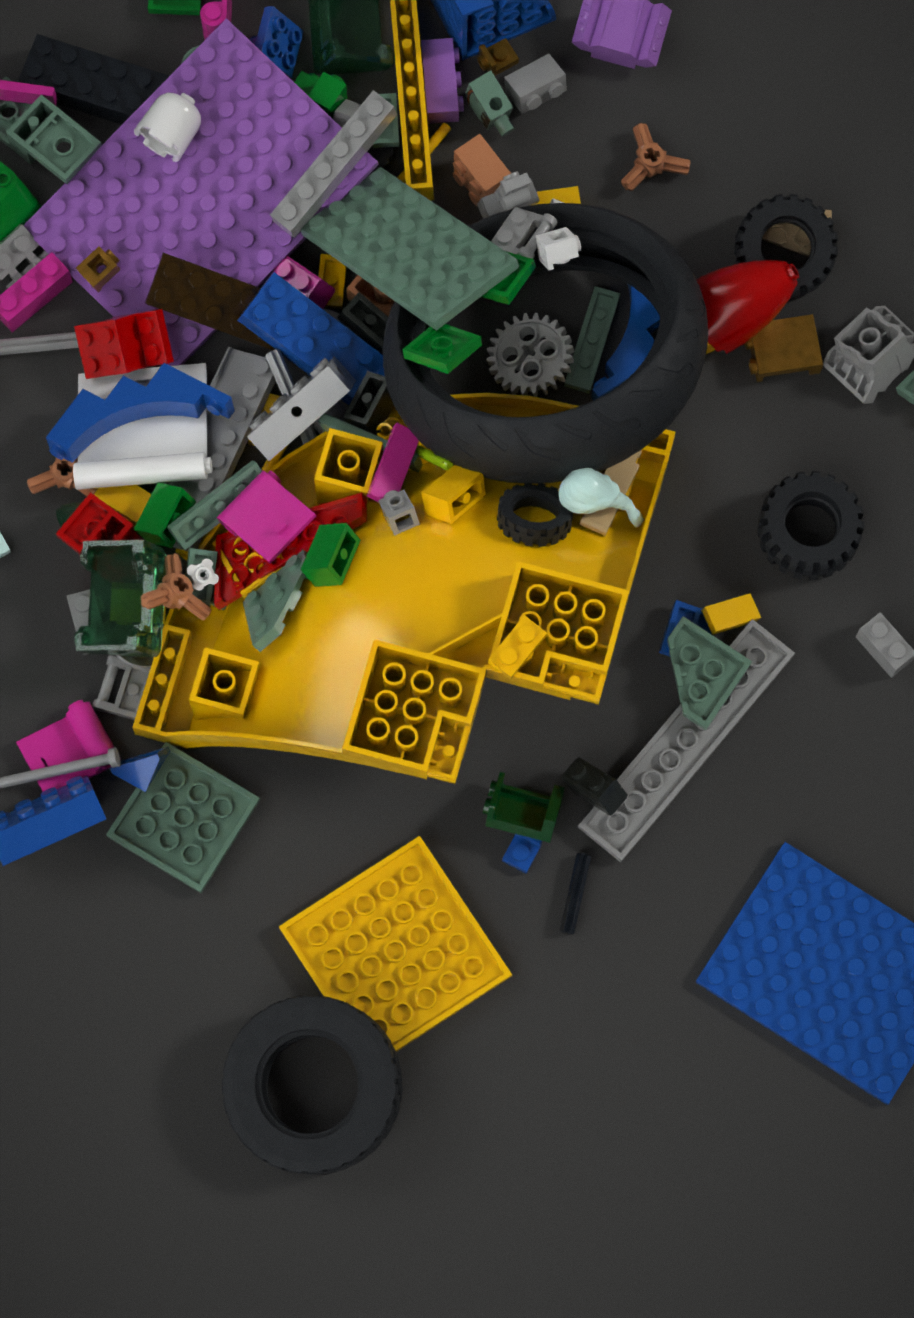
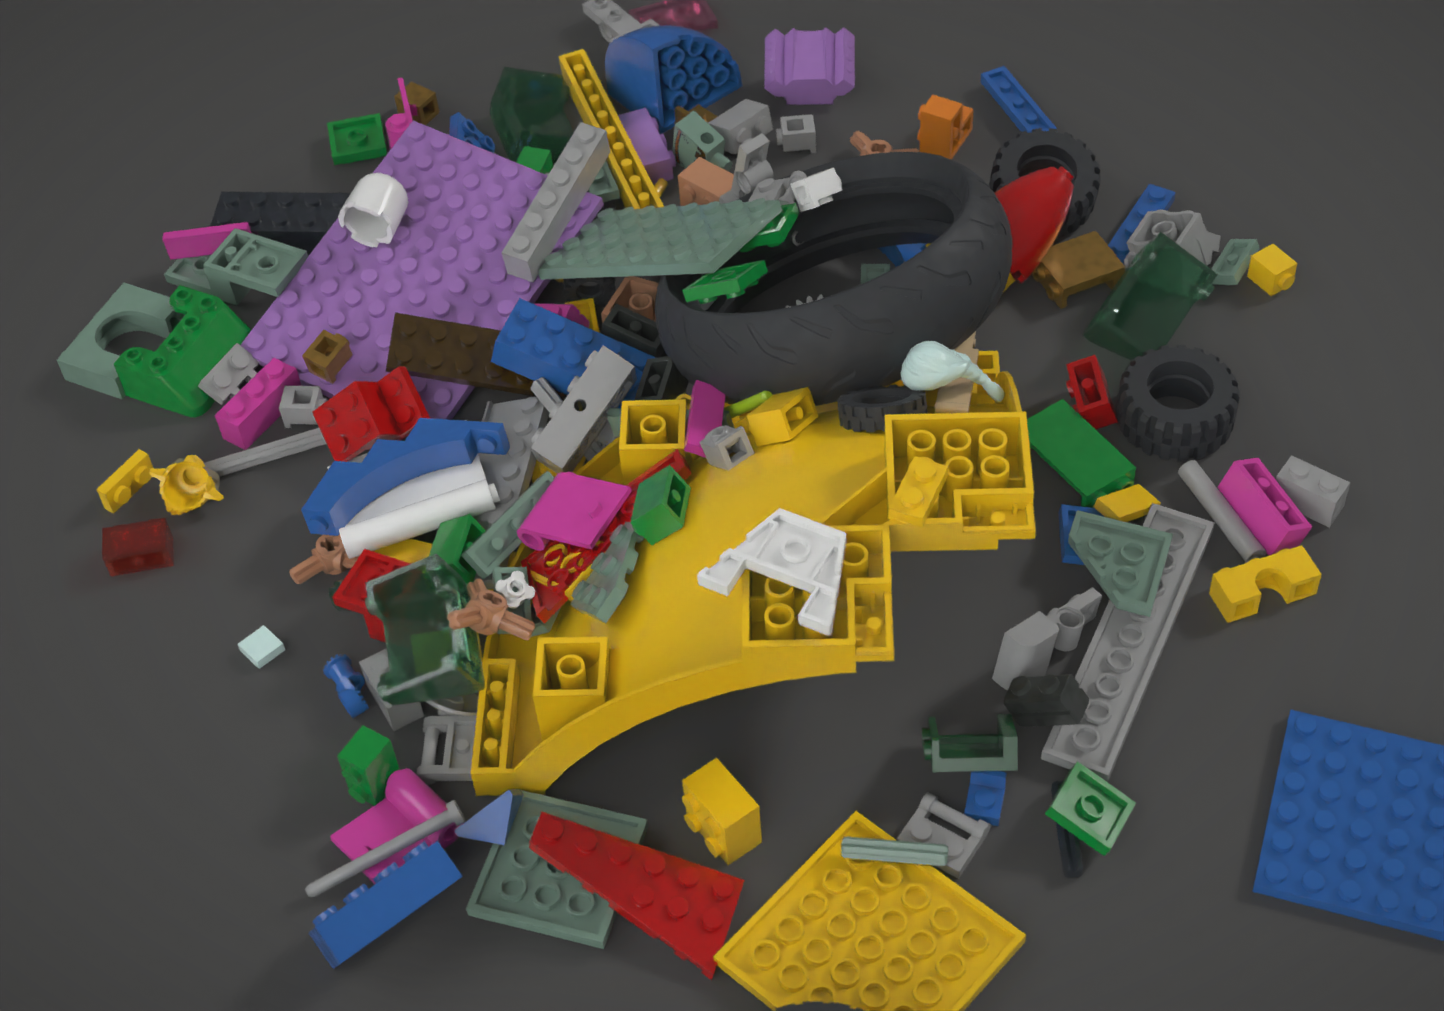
camera: 10 degrees left, 25 degrees down
(54, 605) = (347, 684): none -> blue connector
(55, 694) = (367, 765): none -> green brick
(64, 298) = (298, 404): none -> light grey brick
(253, 863) = (654, 890): none -> red wing
(316, 810) = (721, 812): none -> yellow brick
(404, 680) = (790, 552): none -> white wing
(436, 881) = (894, 851): none -> sand green axle
(473, 876) = (925, 831): none -> light grey plate
(589, 100) = (797, 133): none -> light grey brick
(596, 886) = (1090, 808): none -> green plate
(601, 735) = (1030, 644): none -> light grey plate
(706, 551) = (1079, 453): none -> green panel
(723, 142) = (943, 126): none -> orange brick
(742, 493) = (1091, 392): none -> red brick
(803, 129) = (1015, 100): none -> blue plate
(807, 641) = (1221, 511): none -> light grey piece
(826, 412) = (1150, 299): none -> clear green windscreen
(835, 717) = (1287, 572): none -> yellow arch
(839, 651) = (1264, 506): none -> dark pink brick
(874, 293) = (1152, 199): none -> blue plate

